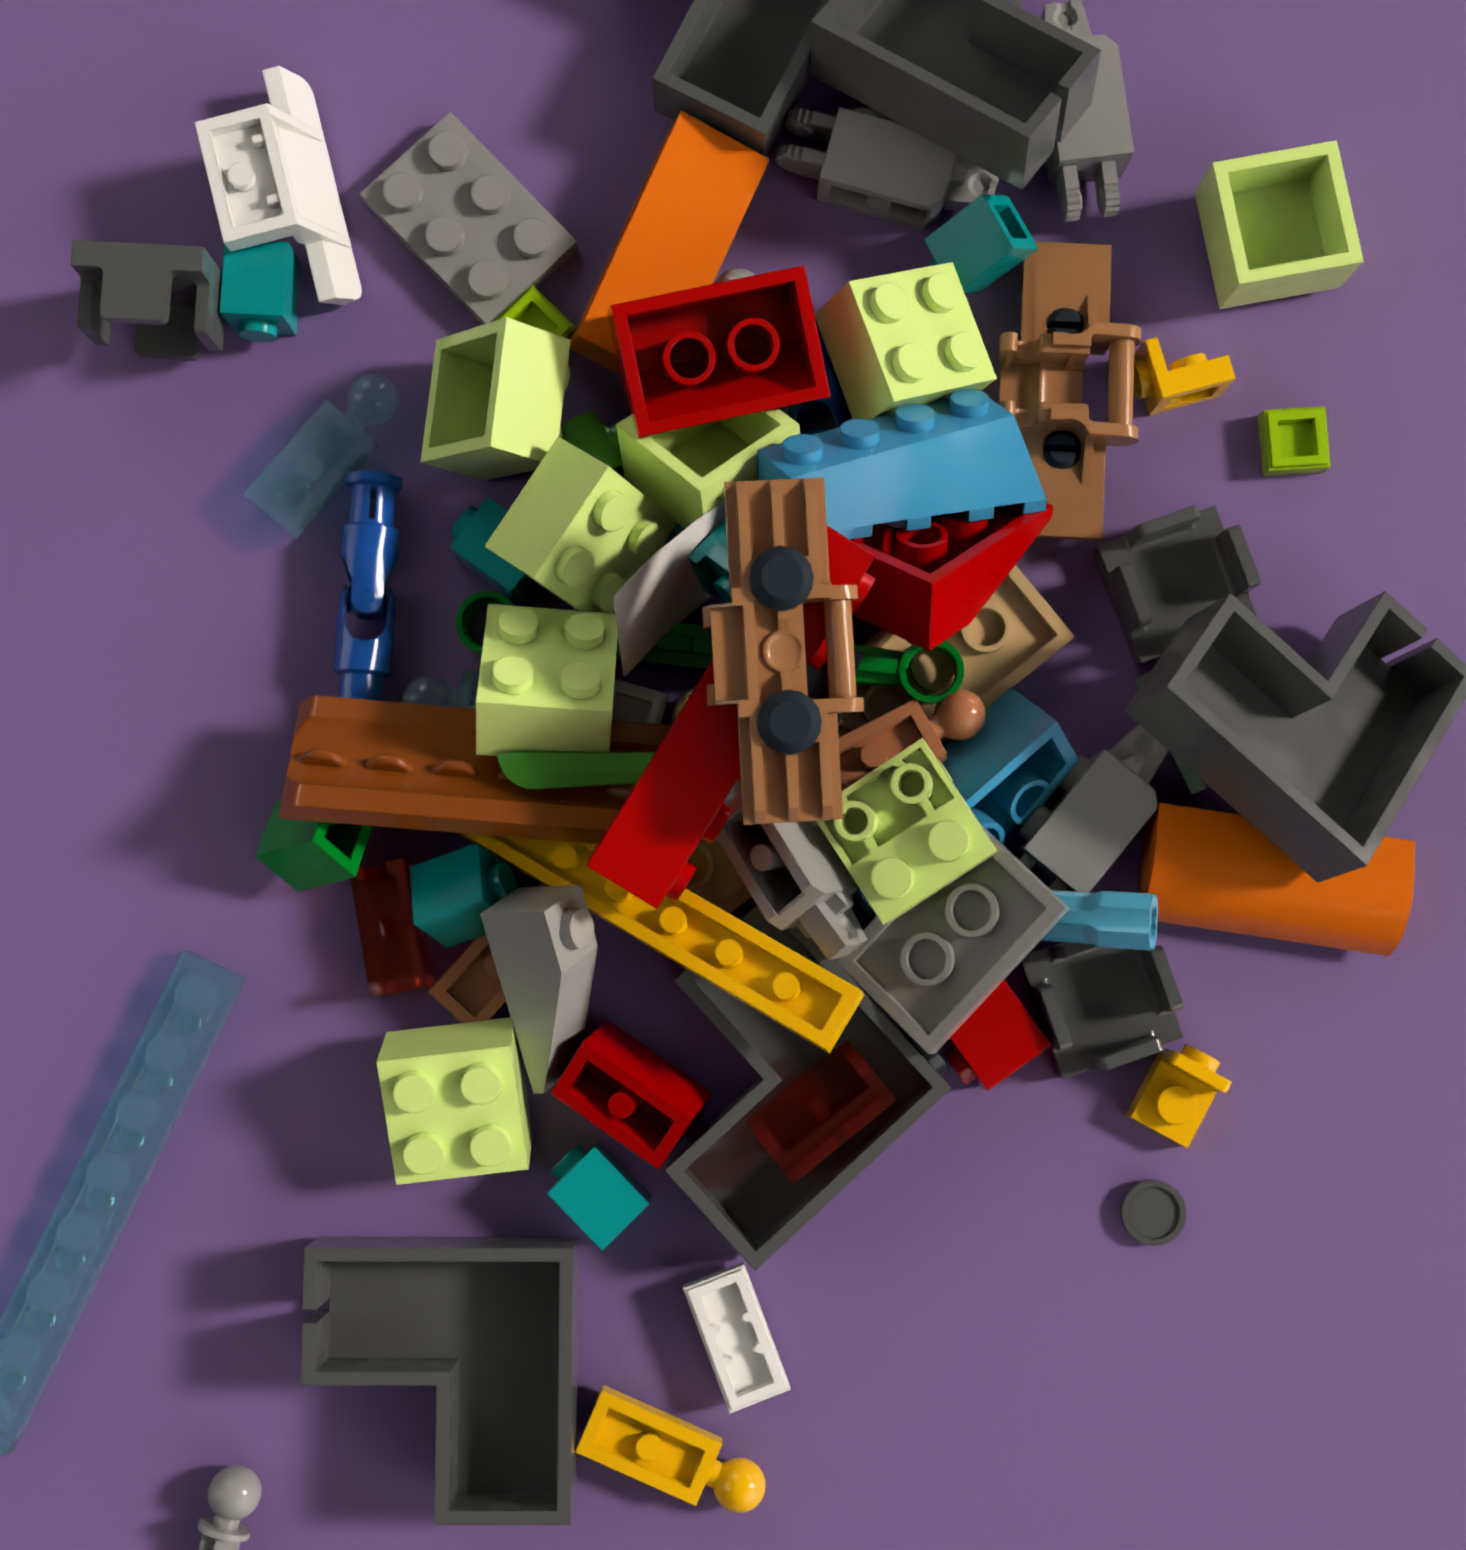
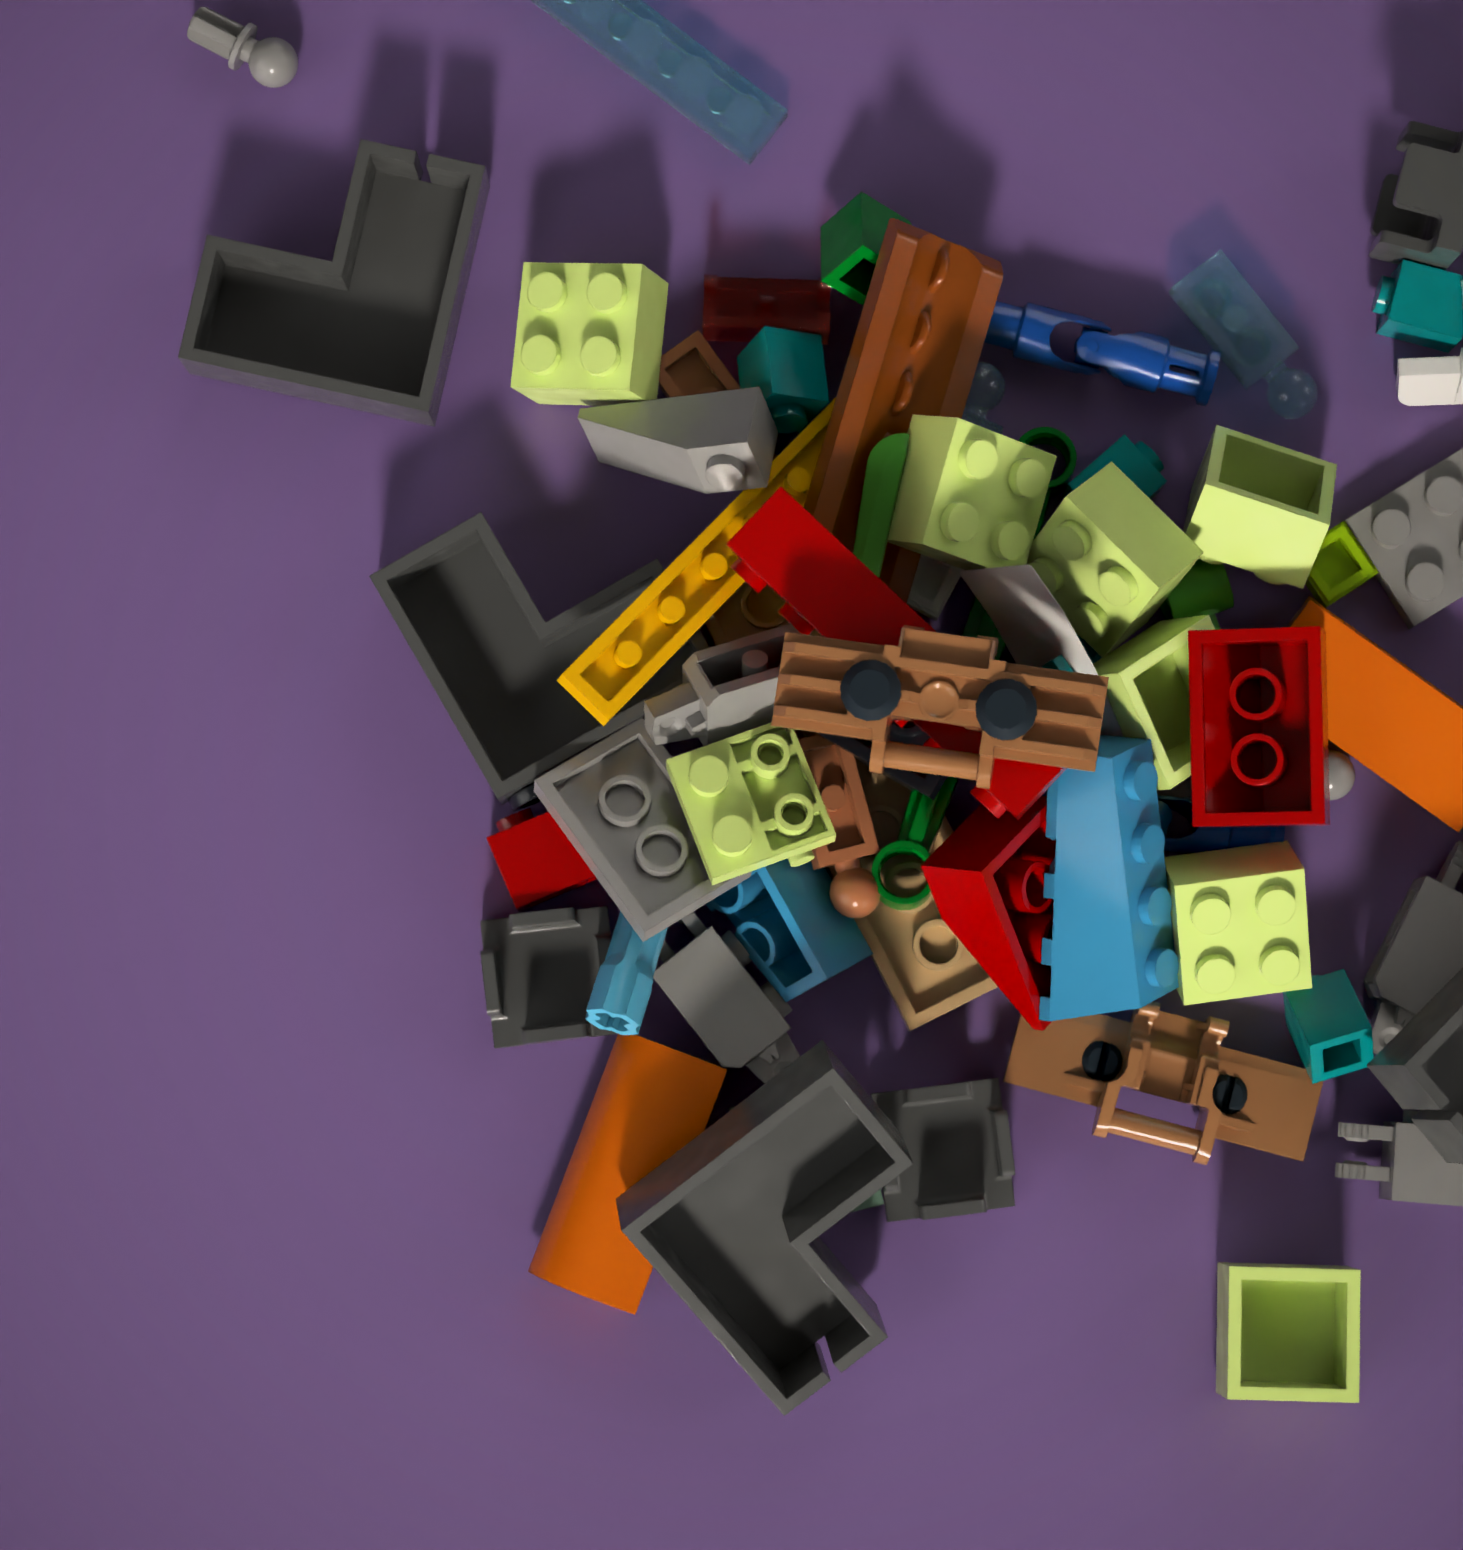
camera: 105 degrees right, 0 degrees up
(597, 1193) = (473, 451): teal brick -> none
(631, 1093) = (559, 500): red brick -> none
(667, 1453) = (216, 466): yellow plate -> none
(736, 1337) = (307, 554): white plate -> none
(820, 1111) = (503, 675): clear red hinge -> none
(1153, 1212) = (332, 982): dark grey piece -> none
(1178, 1093) = (440, 1030): yellow bracket -> none
(1186, 382) = (1146, 1208): yellow bracket -> none
(1294, 441) = (1065, 1306): lime tile -> none

